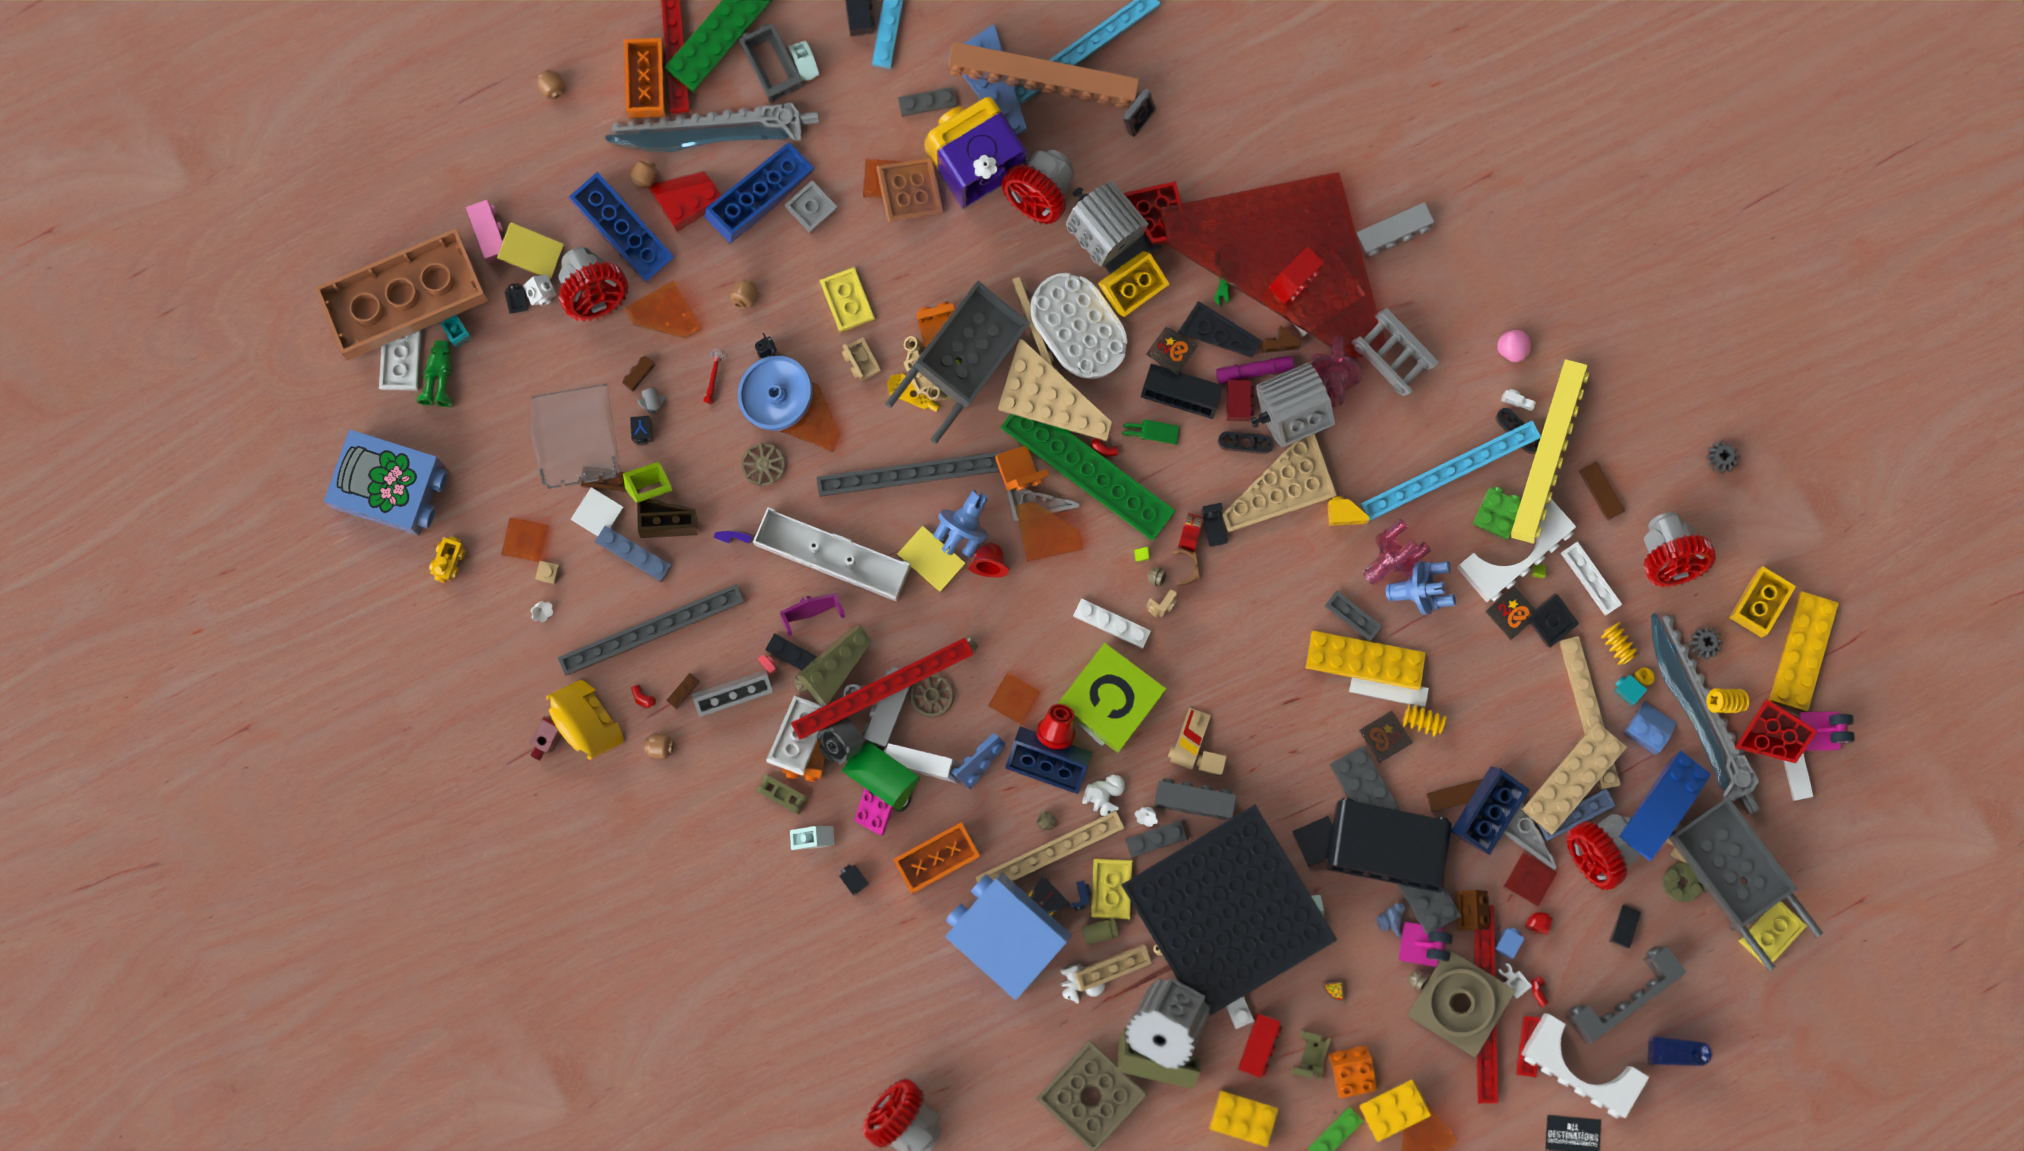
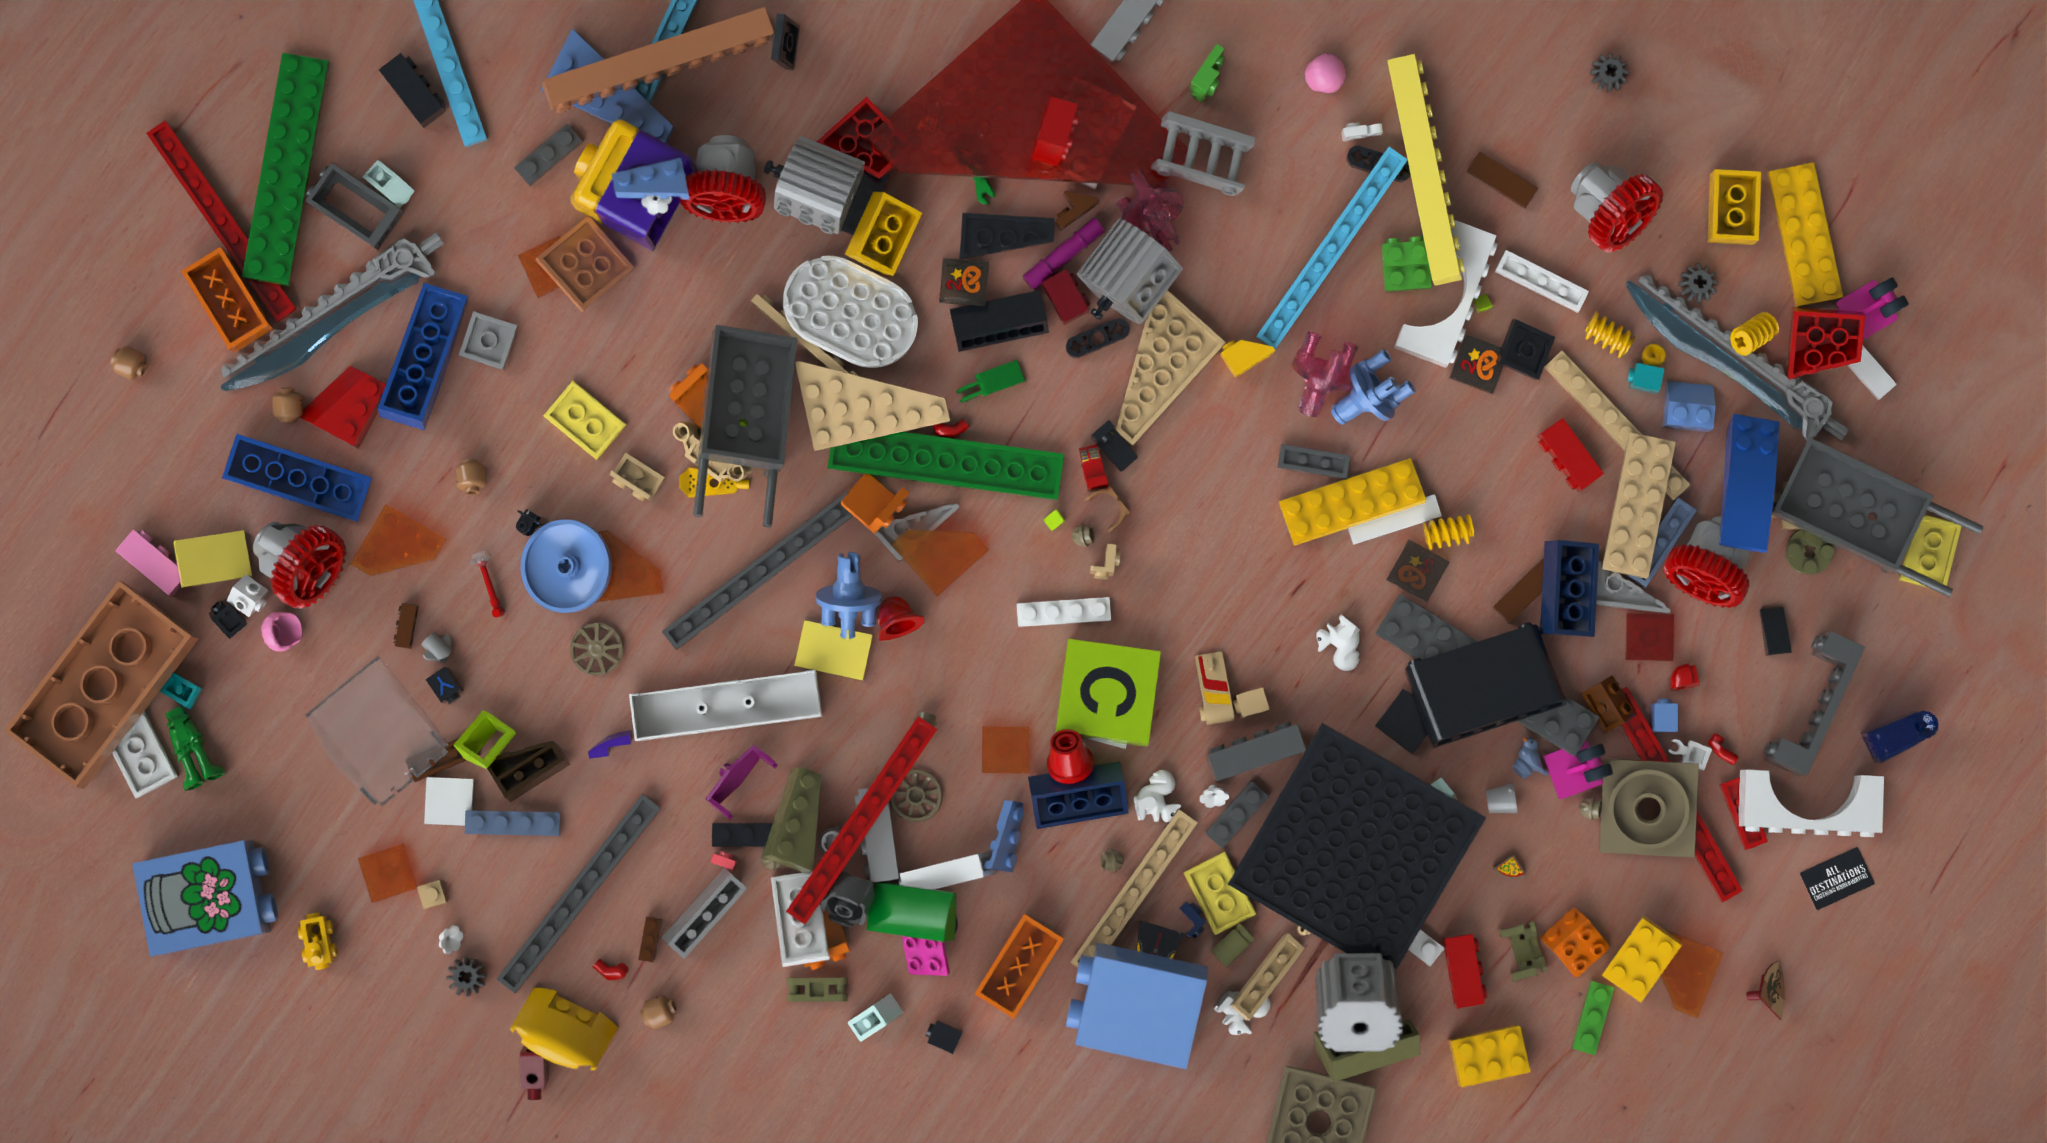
camera: 30 degrees left, 5 degrees up
(543, 638) = (466, 985): none -> dark grey gear
(549, 327) = (281, 630): none -> bright pink hair
(993, 151) = (658, 179): none -> medium blue wing
(1305, 754) = (1345, 639): none -> white animal
(1356, 936) = (1502, 799): none -> light grey piece
(1425, 301) = (1206, 80): none -> bright green plate
(1543, 714) = (1569, 455): none -> red brick

